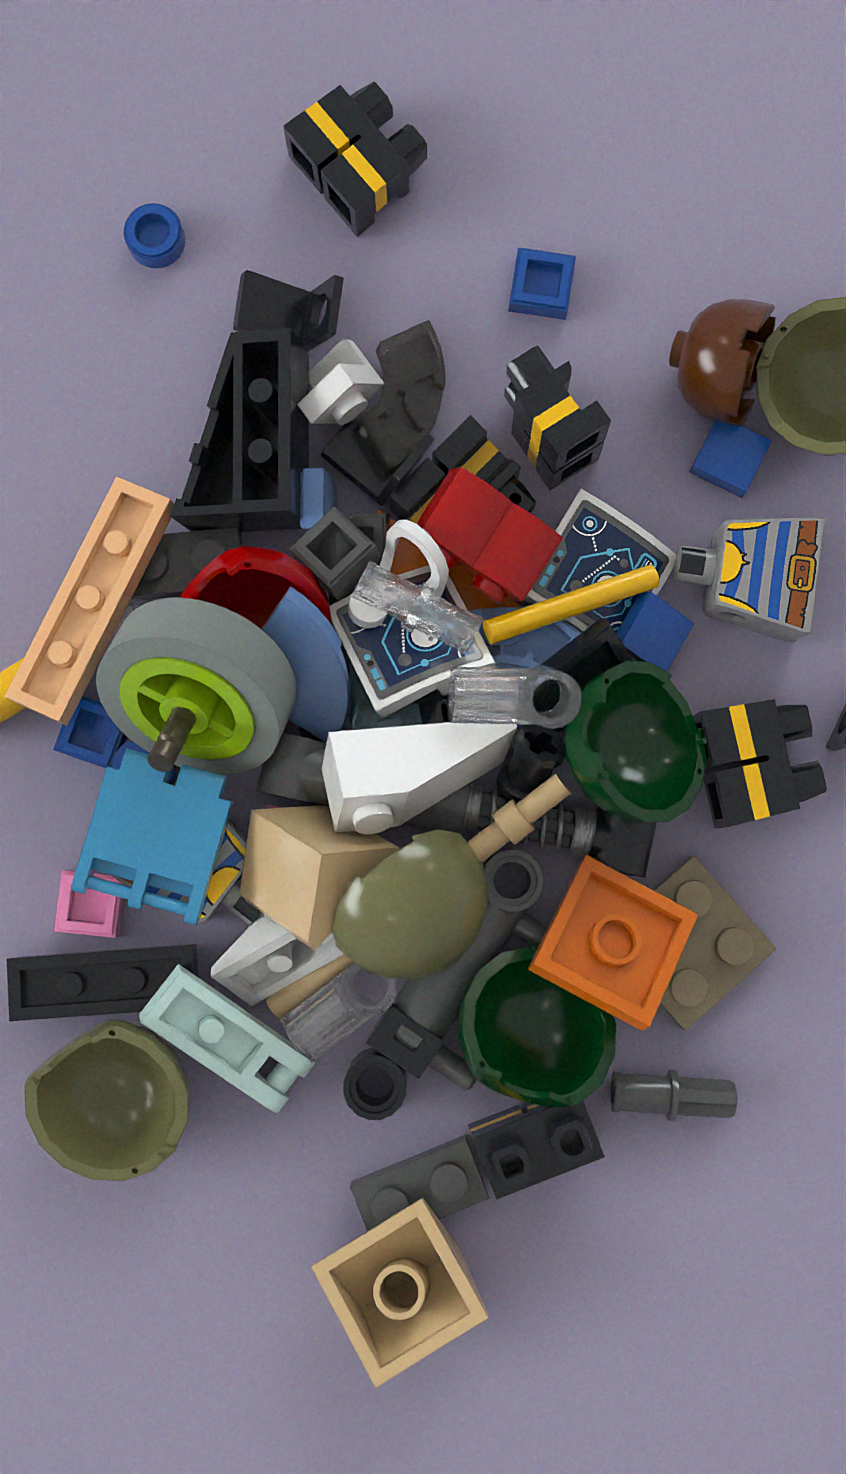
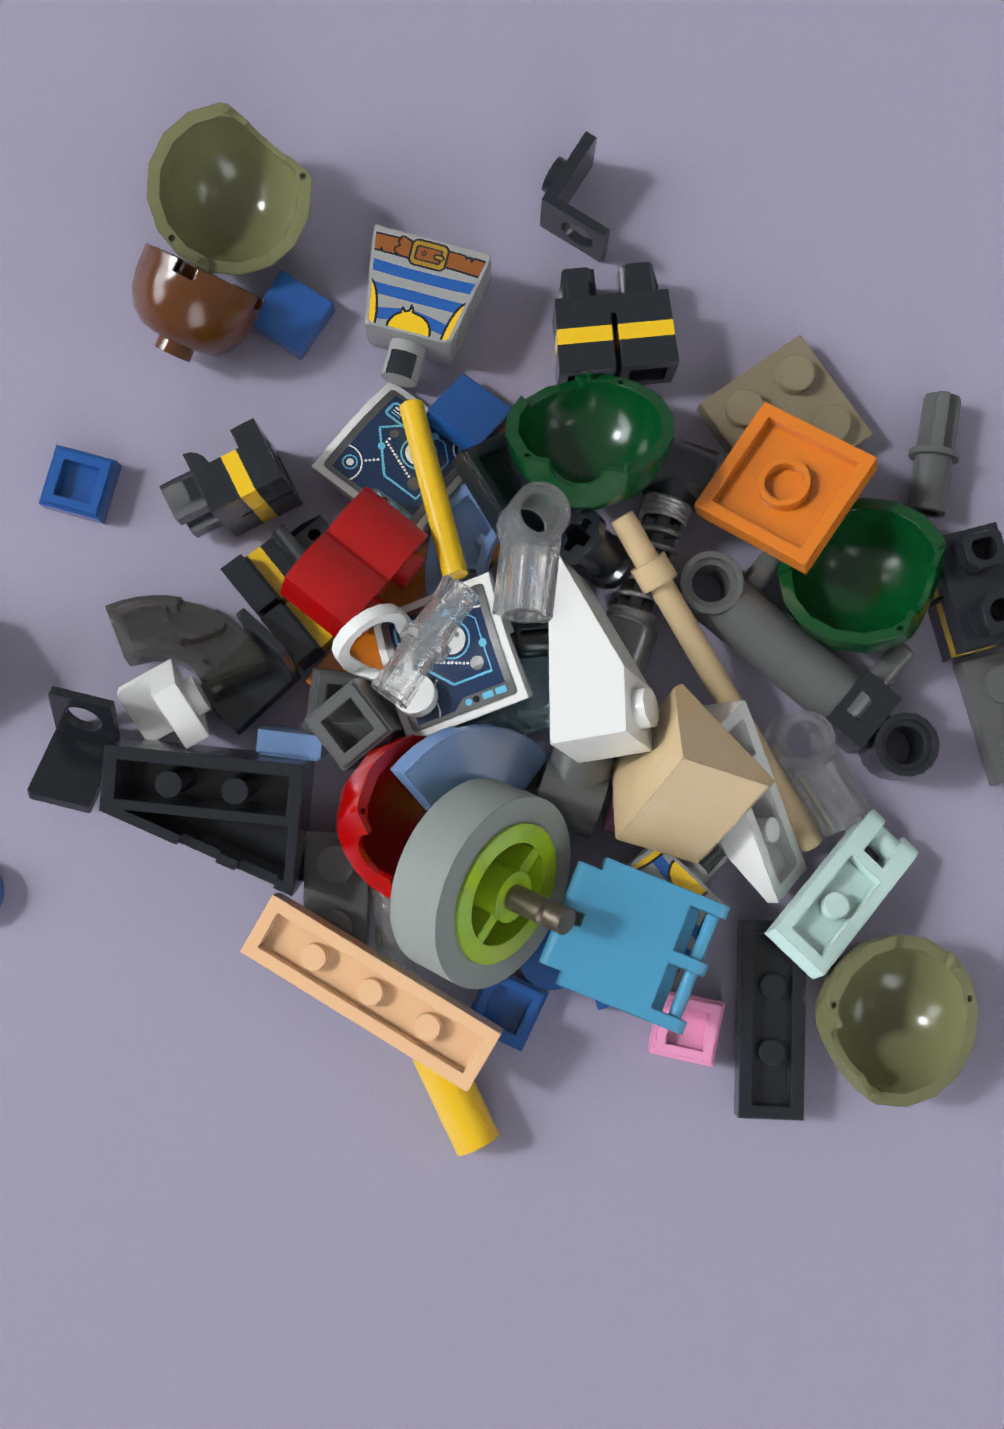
camera: 90 degrees left, 0 degrees up
(414, 908) = (743, 675): olive cylinder -> none

